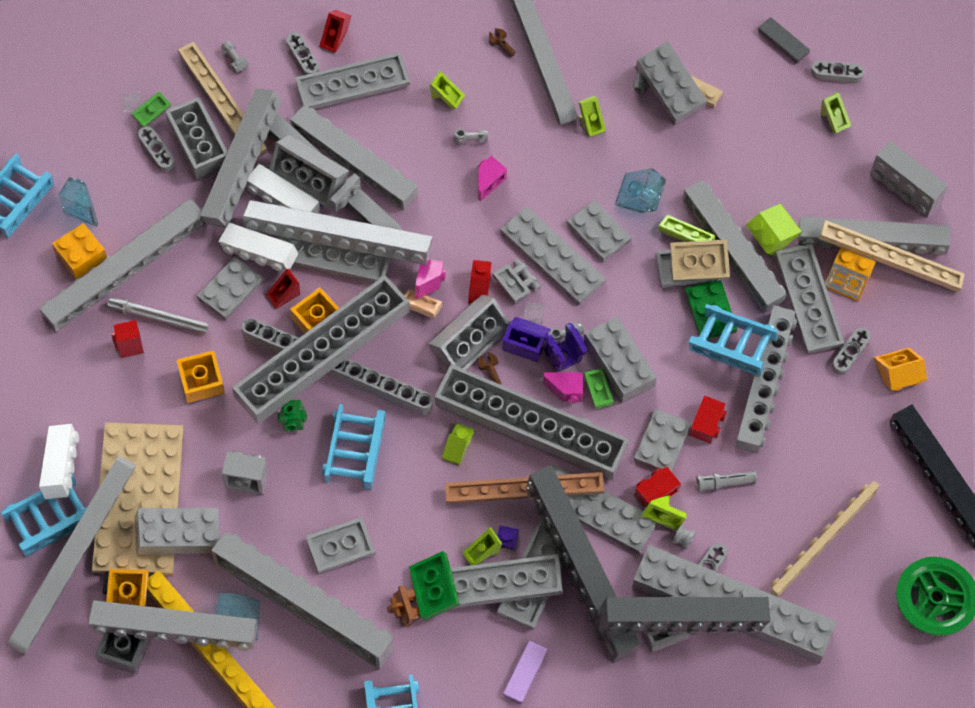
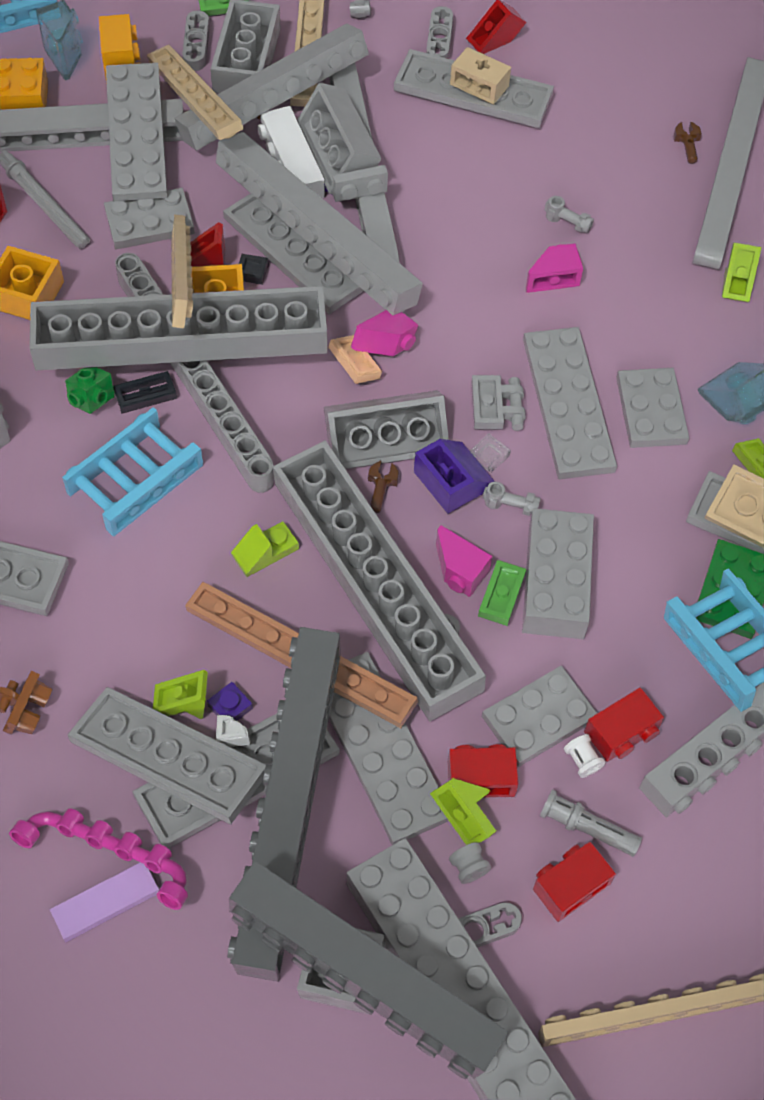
camera: 35 degrees right, 5 degrees down
(124, 189) = (117, 40): none -> light orange brick
(183, 237) = (136, 132): none -> light grey plate
(200, 191) = (196, 93): none -> tan plate
(258, 247) = (212, 188): white brick -> none
(298, 315) = (181, 272): none -> tan plate
(310, 409) = (145, 396): none -> black tile
(315, 281) = (253, 268): none -> black tile
(354, 157) = (410, 164): light grey brick -> none
(356, 73) = (480, 75): none -> tan brick
(434, 585) = (77, 701): green plate -> none
(443, 88) = (575, 146): lime slope -> none
(479, 279) = (450, 372): red slope -> none
(517, 639) = (98, 836): none -> dark pink bar
(523, 550) = (231, 732): none -> white tile
(572, 346) = (503, 518): dark purple piece -> none
(699, 448) = (584, 755): none -> white bush
(738, 512) = (573, 880): none -> red brick

